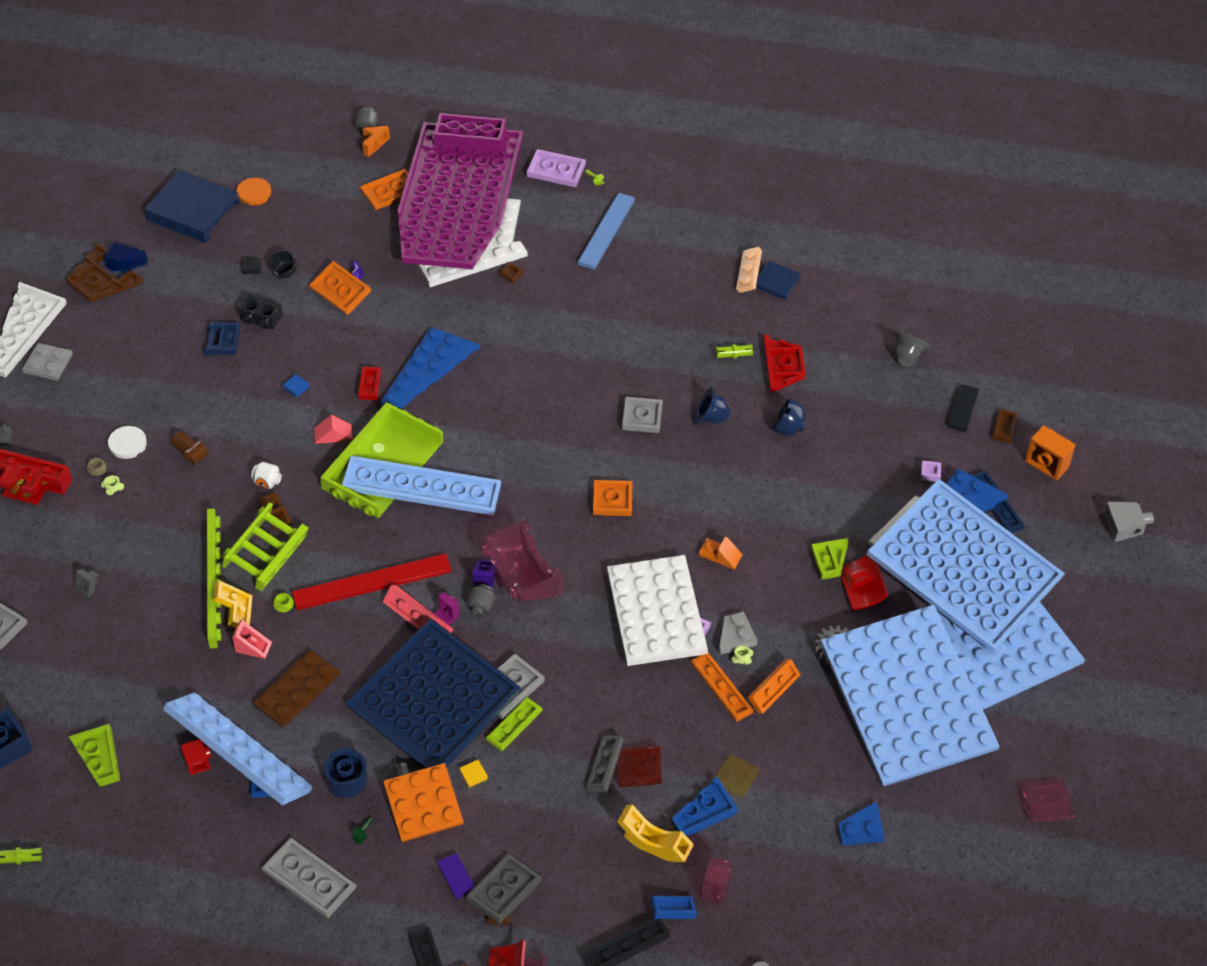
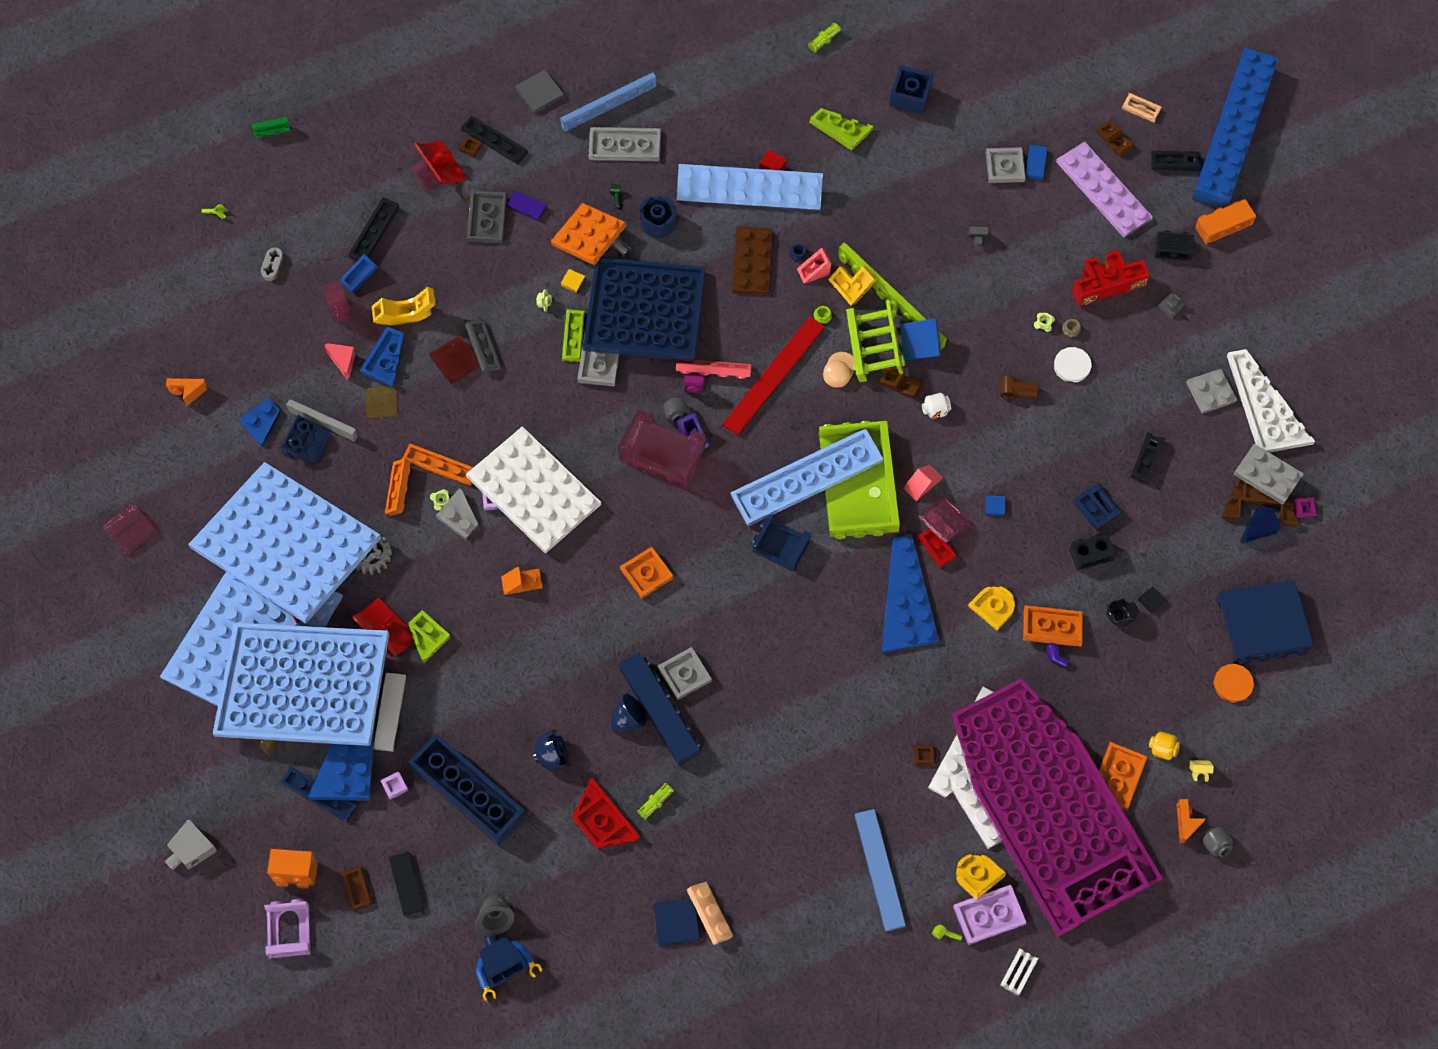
camera: 145 degrees right, 15 degrees up
(78, 252) = (1305, 507): none -> magenta tile
(79, 279) = (1268, 474): none -> light grey plate
(148, 346) = (1147, 458): none -> black plate
(227, 522) = (920, 339): none -> blue tile
(250, 662) = (798, 247): none -> dark blue plate
(285, 926) = (608, 102): none -> medium blue tile
(314, 554) = (839, 369): none -> light nougat cap
(331, 159) = (1201, 767): none -> light yellow tile
(342, 182) = (1164, 745): none -> yellow head
(346, 393) = (944, 519): none -> clear pink slope
(367, 326) = (994, 606): none -> yellow tile
(486, 453) = (780, 543): none -> dark blue panel
(515, 768) = (544, 300): none -> yellowish green plate
(542, 189) = (978, 874): none -> yellow tile
(564, 133) = (1027, 956): none -> white tile
(682, 402) = (659, 709): none -> dark blue brick
(745, 832) = (343, 357): none -> coral slope
(805, 786) = (322, 420): none -> light grey tile
(834, 777) = (305, 440): none -> dark blue plate
(875, 431) = (467, 789): none -> dark blue brick
(914, 896) = (190, 387): none -> orange slope
(924, 317) = (502, 961): none -> dark blue torso
(1084, 413) = (274, 911): none -> lavender panel

